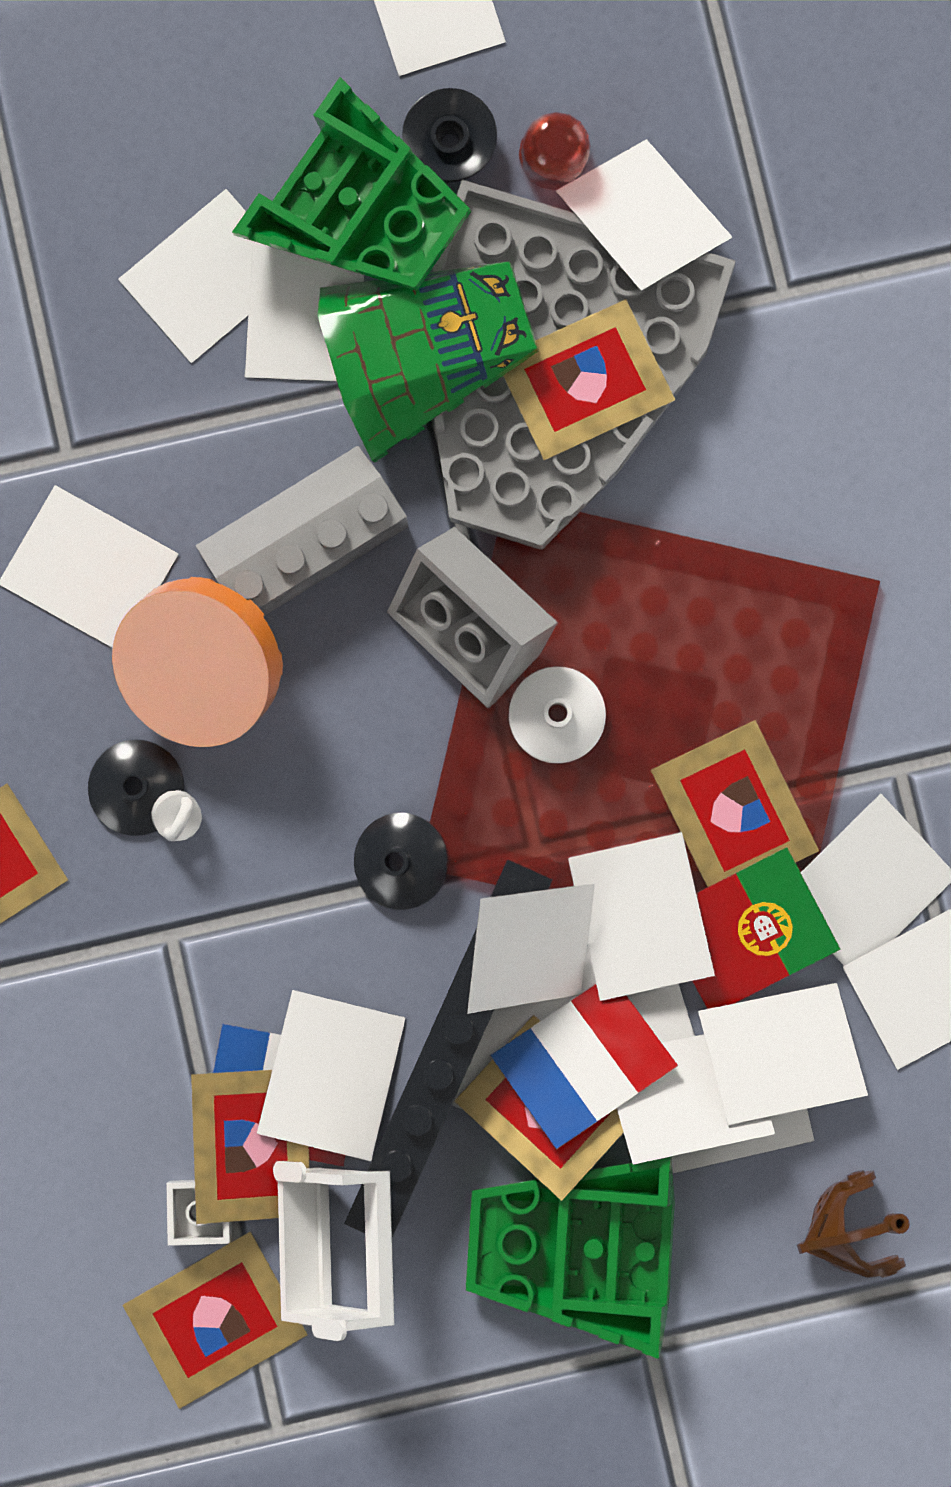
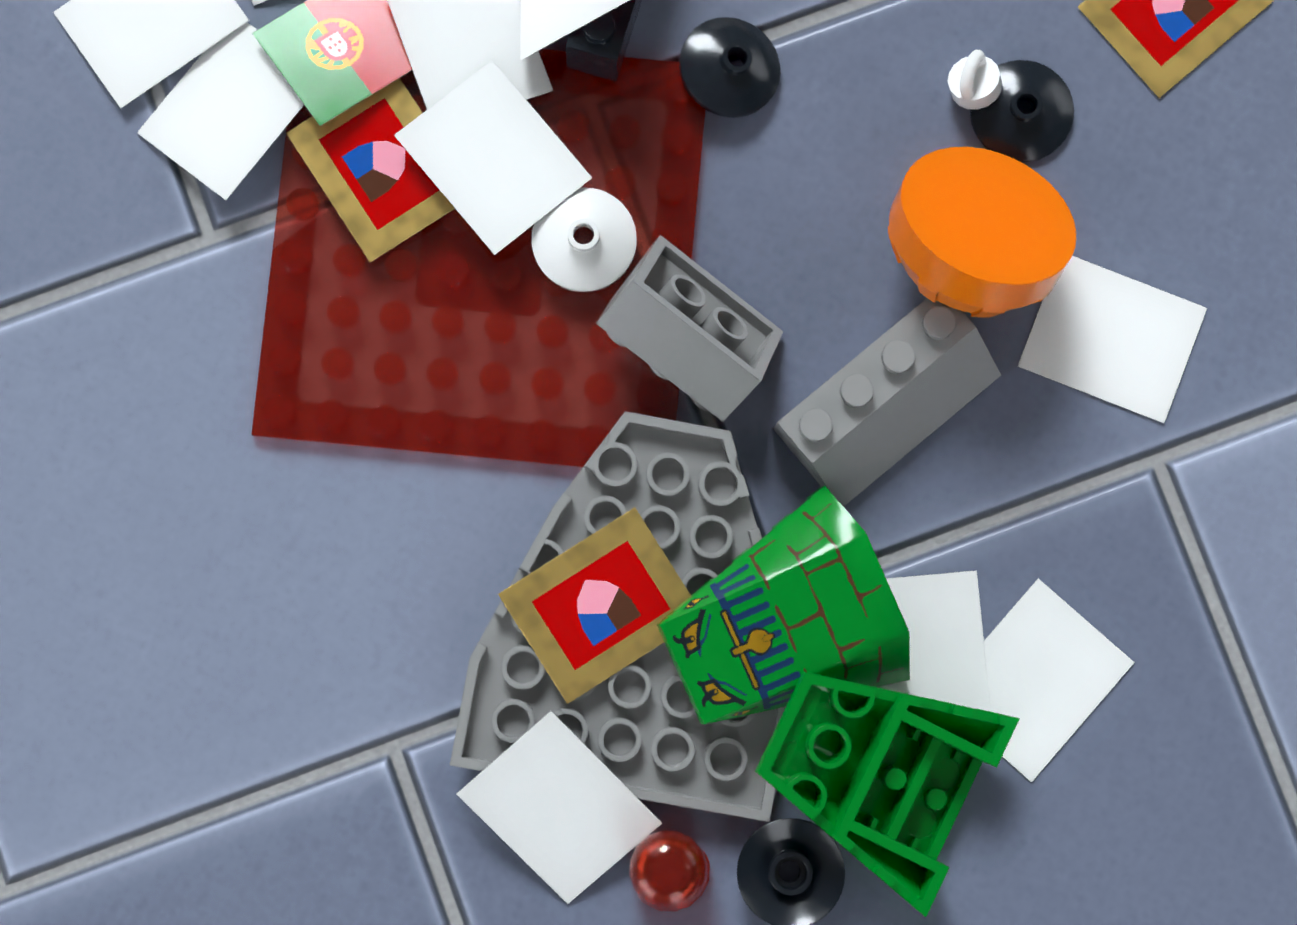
camera: 165 degrees right, 0 degrees up
(631, 799) = (493, 157): none -> white sticker

